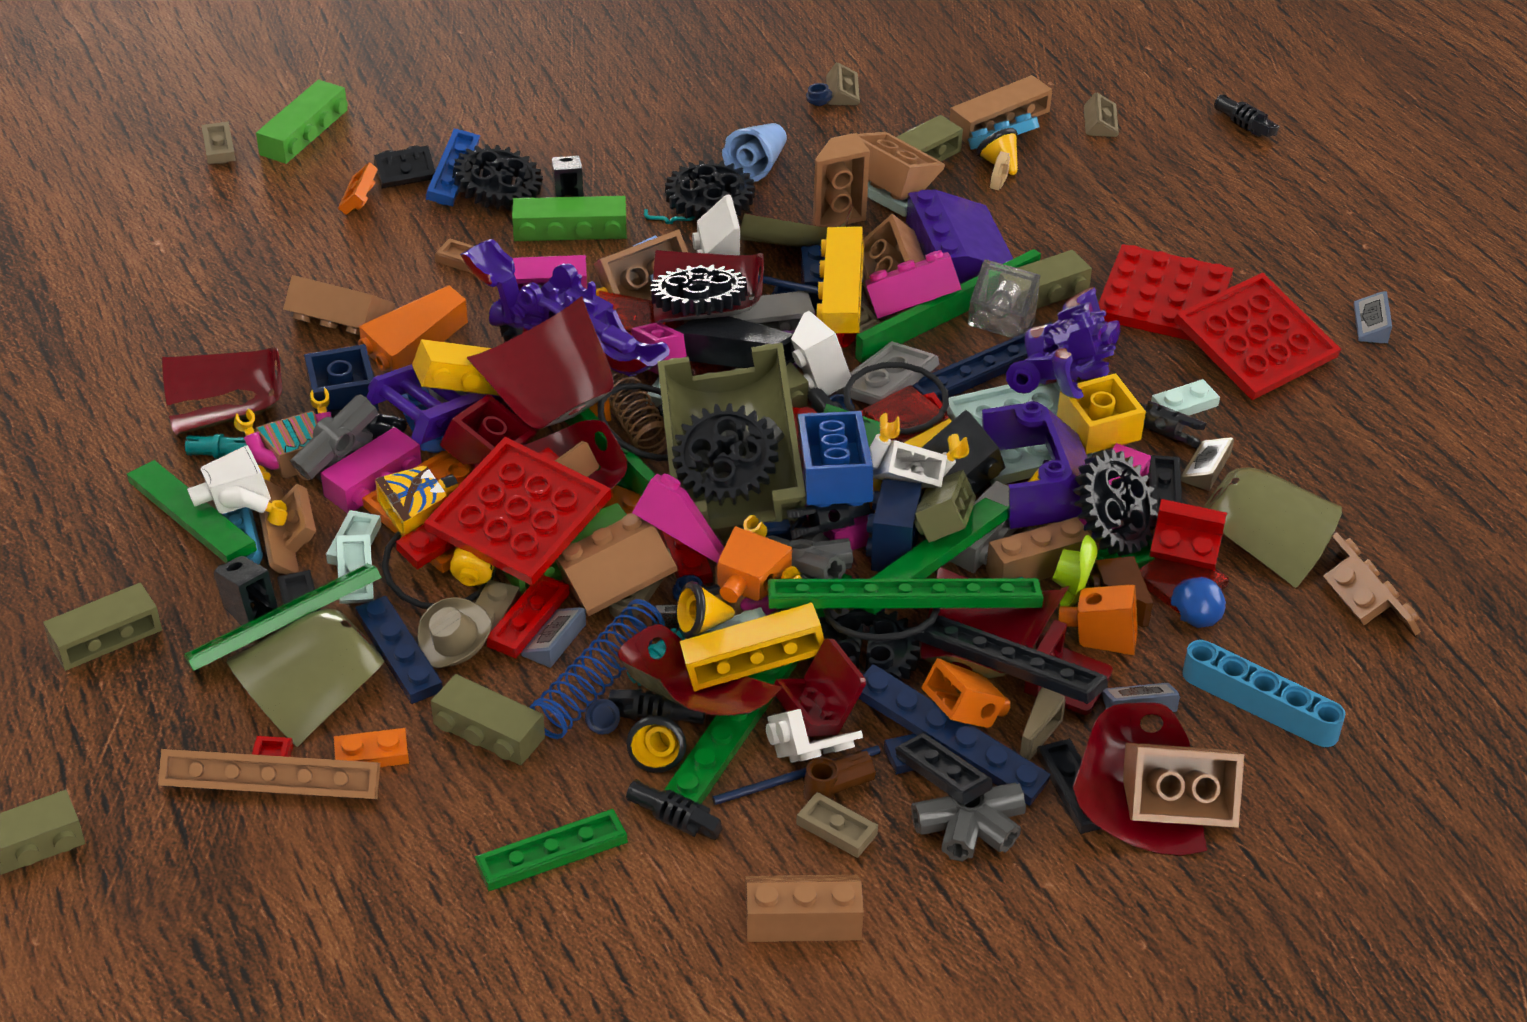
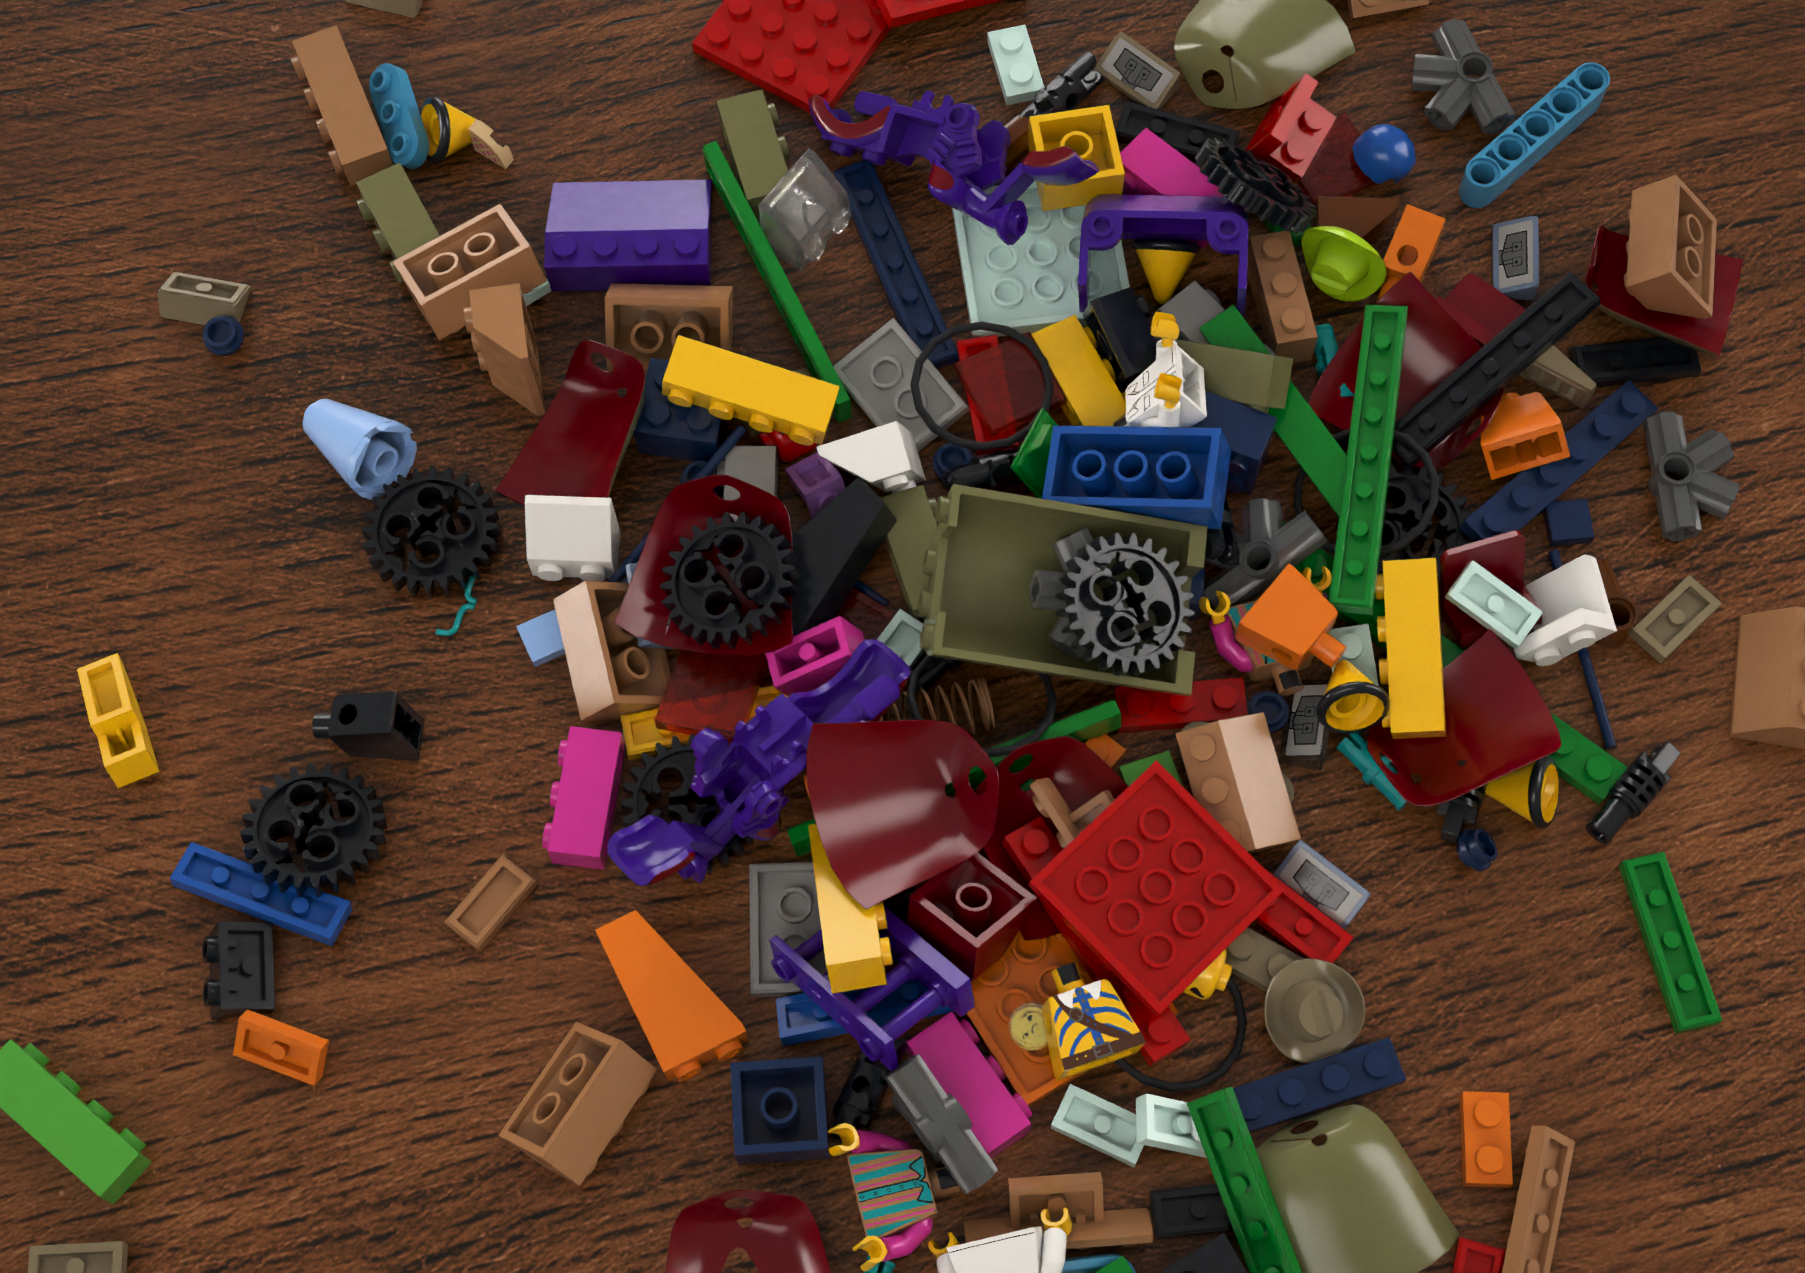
camera: 75 degrees left, 25 degrees up
(488, 719) = (1468, 988): olive brick -> none
(550, 99) = (117, 721): none -> yellow slope
(554, 709) = (1323, 774): blue piece -> none
(569, 218) = (449, 739): bright green brick -> none
(675, 513) = (1208, 691): dark pink slope -> none
(801, 680) = (1493, 604): none -> light aqua plate
(912, 283) = (759, 302): dark pink brick -> none
(943, 768) = (1630, 484): black tile -> none
(1291, 640) = (1455, 90): none -> dark grey piece

